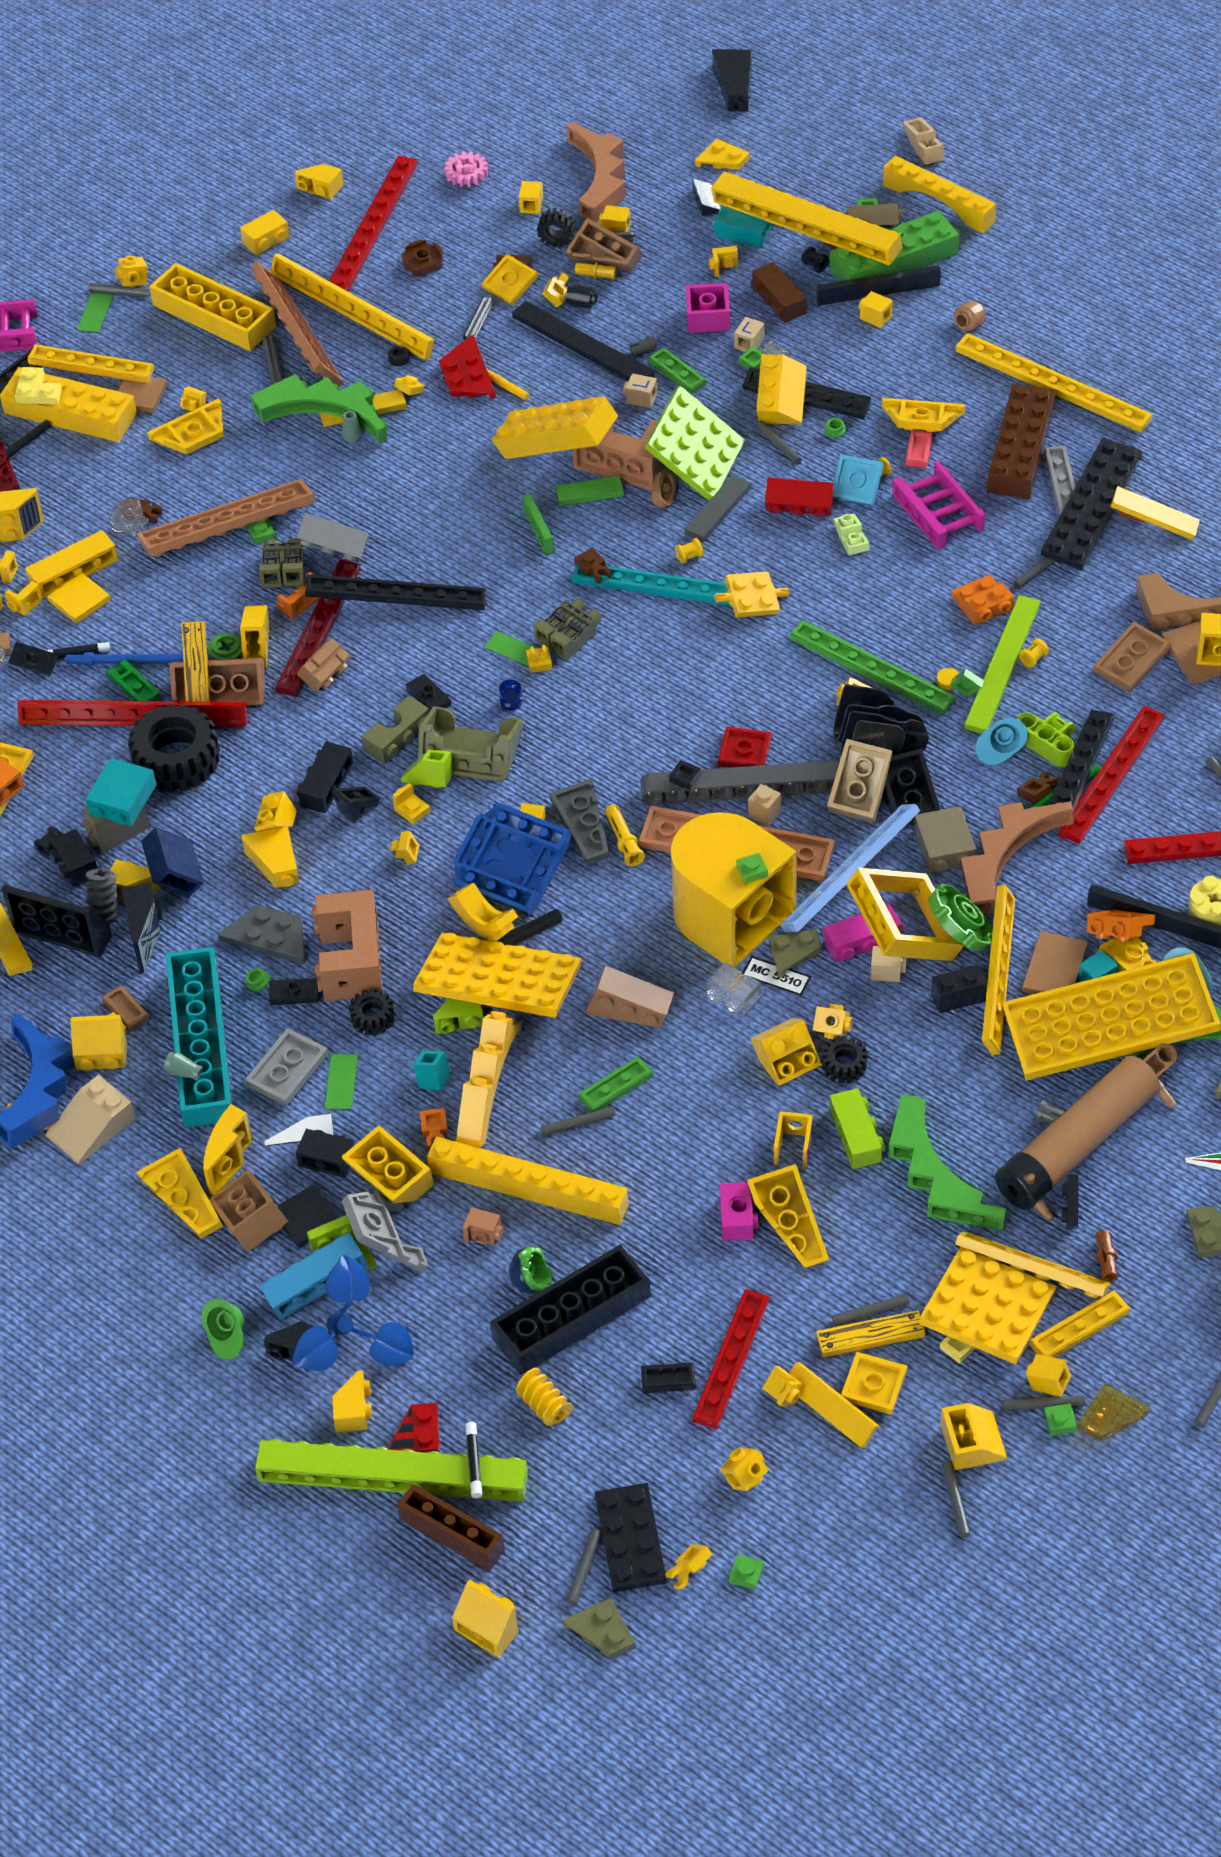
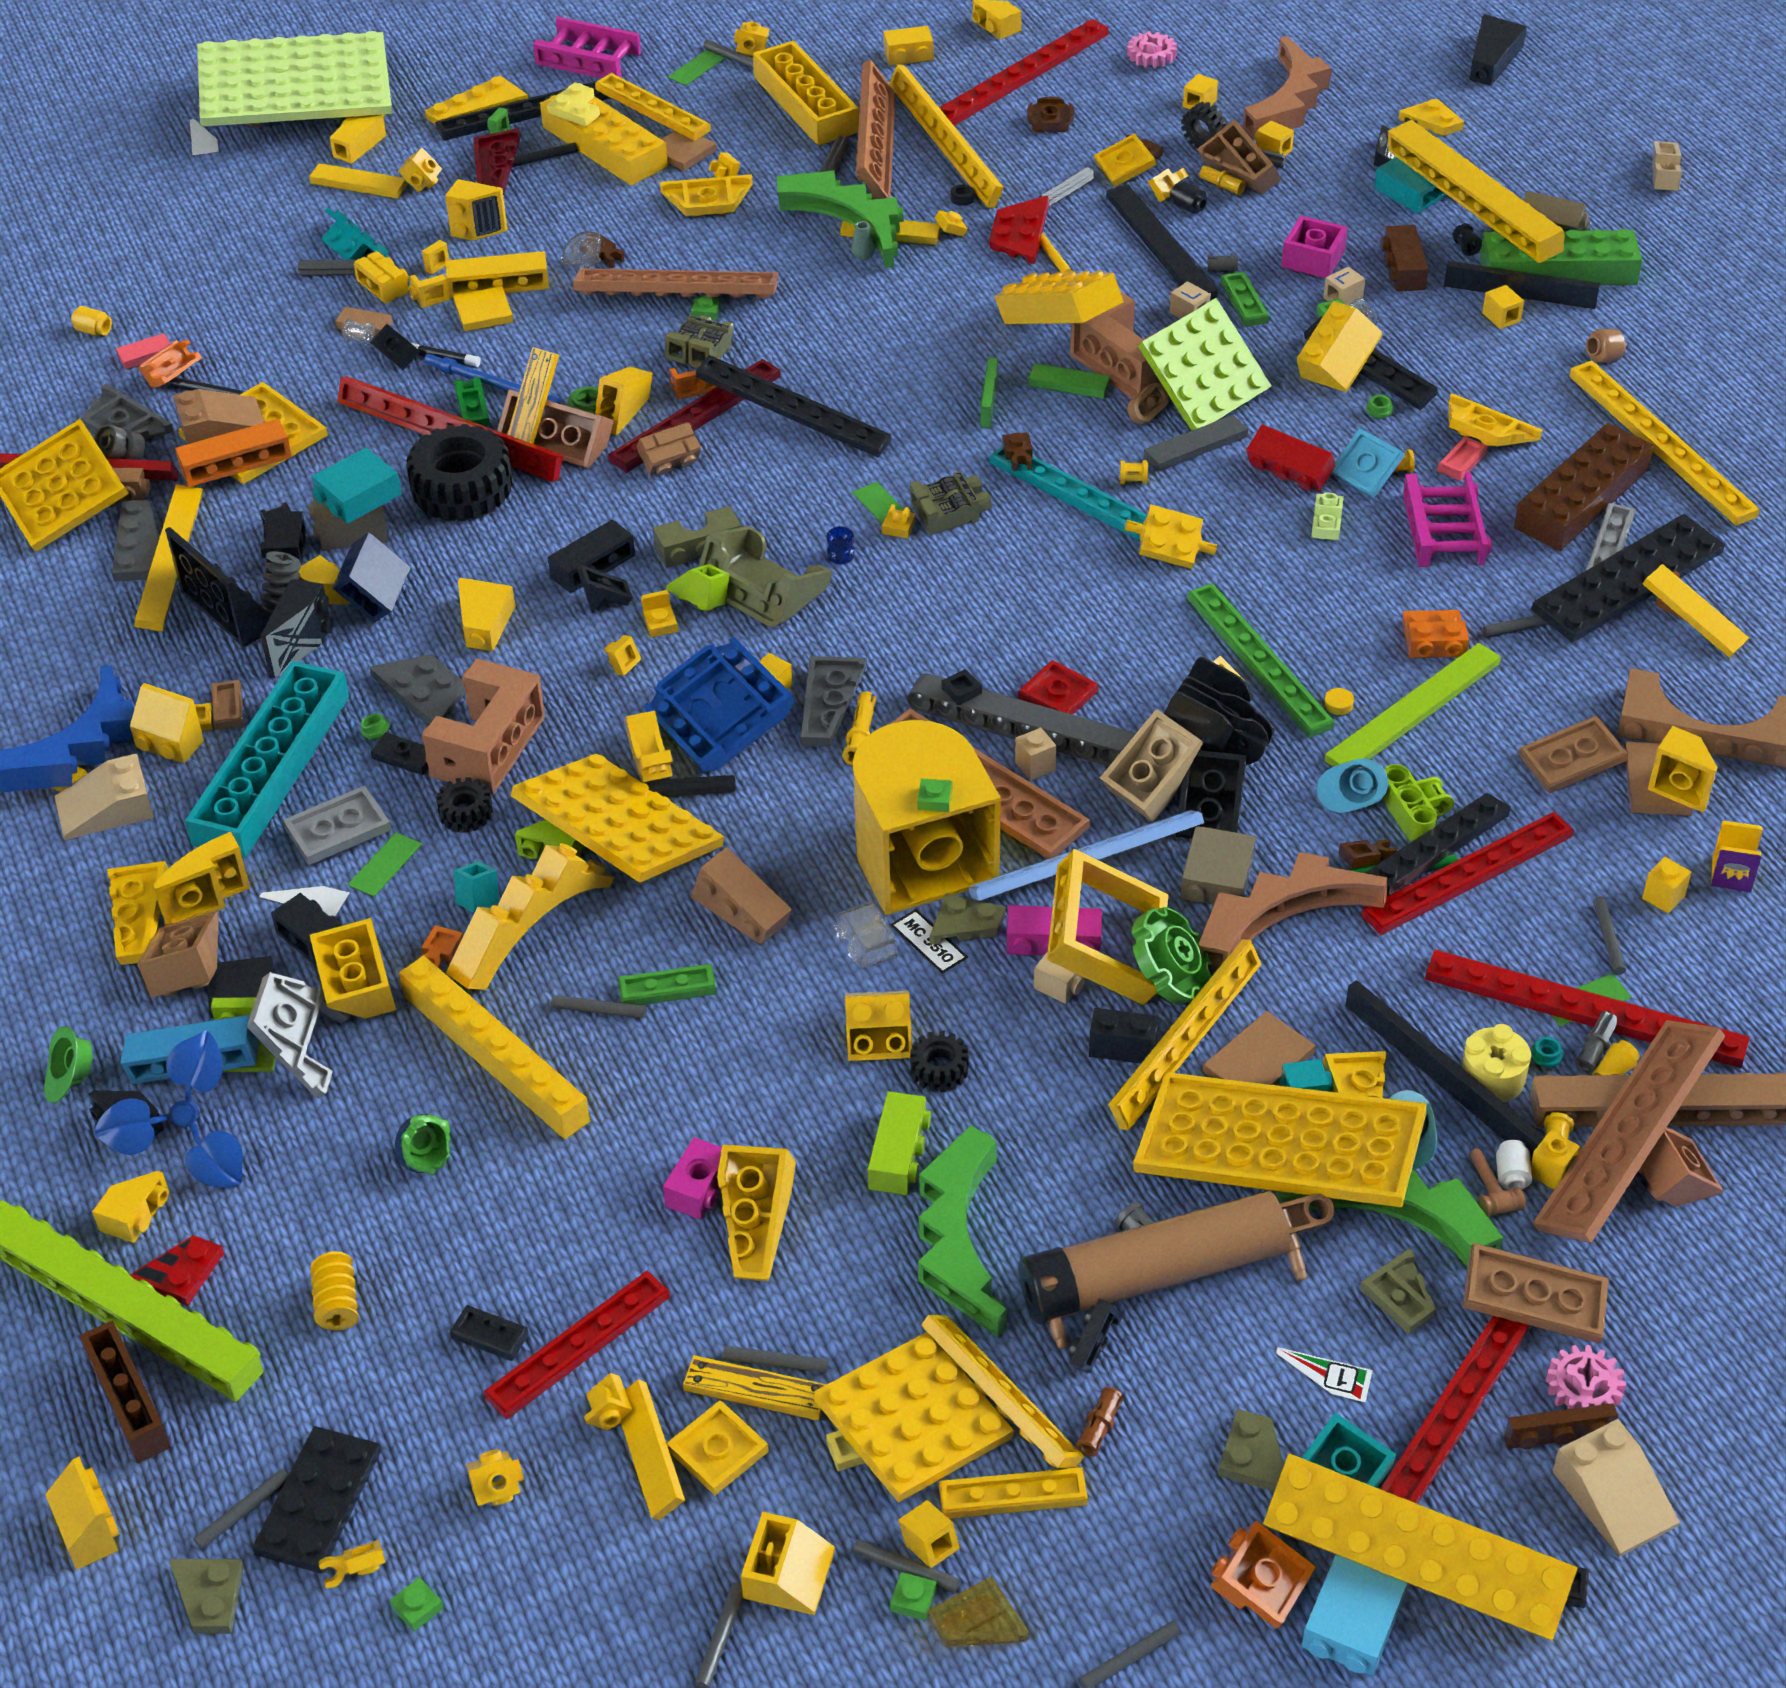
camera: 25 degrees right, 5 degrees down
(181, 1066) = (213, 773): sand green cone -> none
(275, 812) = (511, 568): yellow slope -> none
(332, 537) = (762, 331): light grey slope -> none
(427, 693) = (759, 514): black plate -> none
(473, 1459) = (199, 1325): black bar -> none
(482, 1227) = (409, 1075): nougat brick -> none
(570, 1309) = (432, 1205): black brick -> none
(723, 258) = (1365, 208): yellow bracket -> none
(778, 442) = (1308, 401): dark grey bar -> none
(784, 1127) = (805, 1111): yellow piece -> none
(824, 1018) = (950, 1012): yellow brick -> none
(967, 682) = (1354, 710): bright green plate -> none
(971, 208) = (1677, 243): yellow arch -> none
(1034, 652) = (1456, 708): yellow bush -> none
(1118, 924) = (1359, 1037): orange plate -> none

